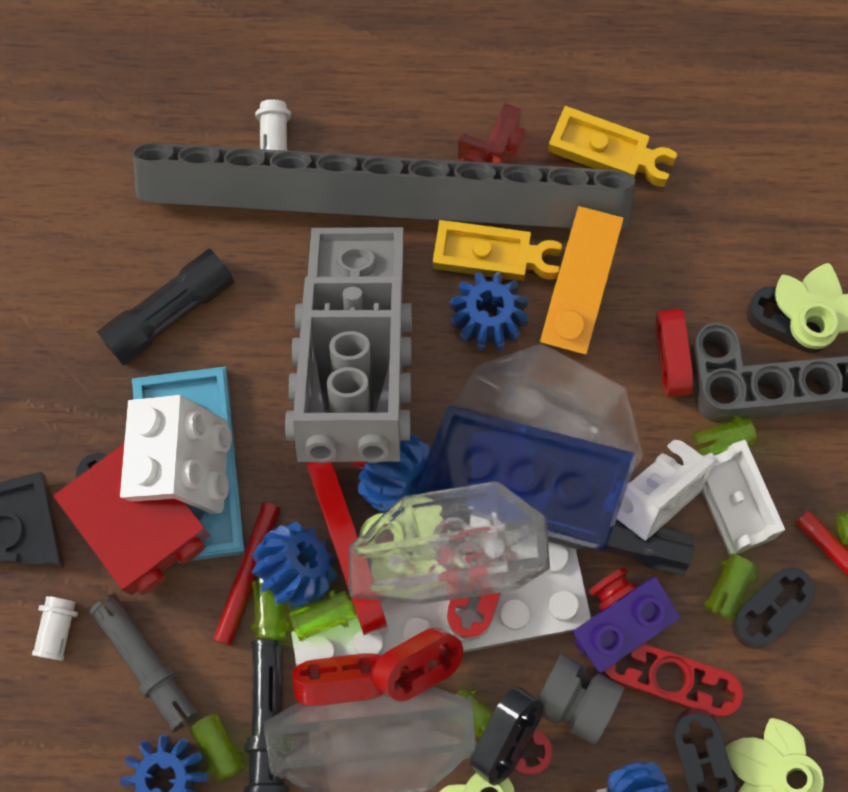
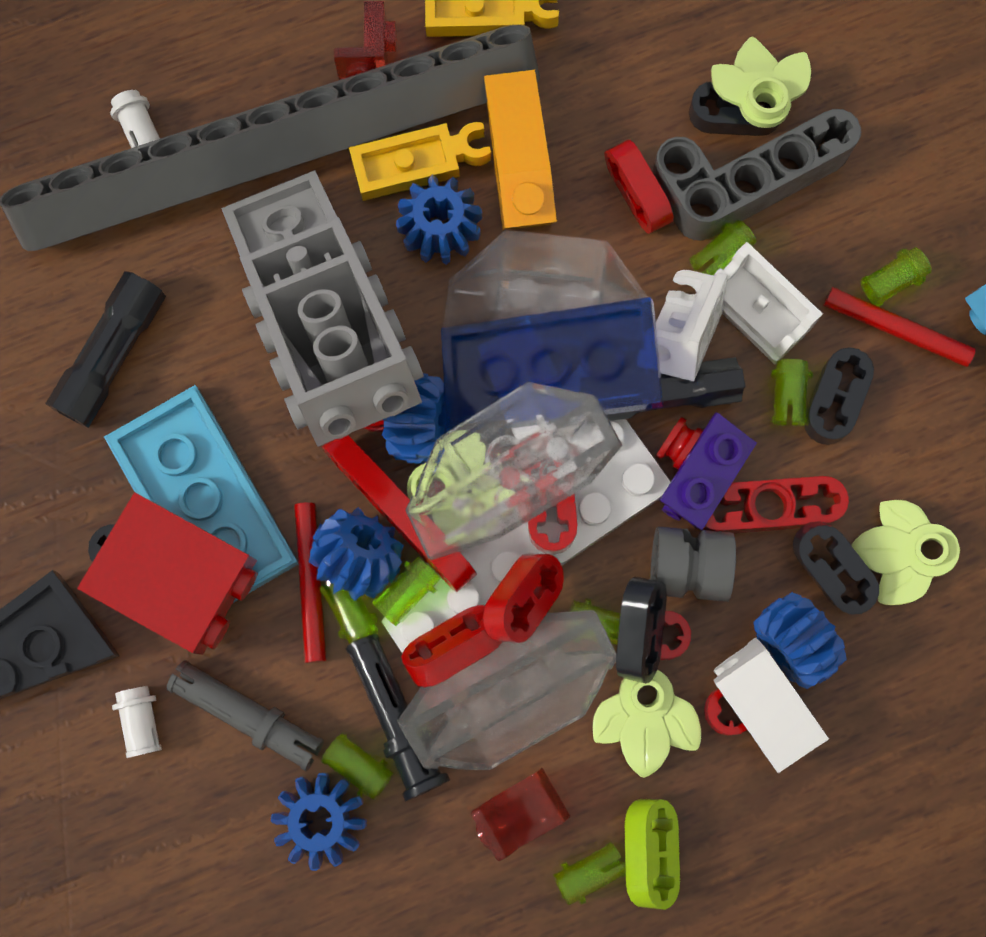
camera: 25 degrees left, 5 degrees up
(175, 453) = (184, 492): white bracket -> none

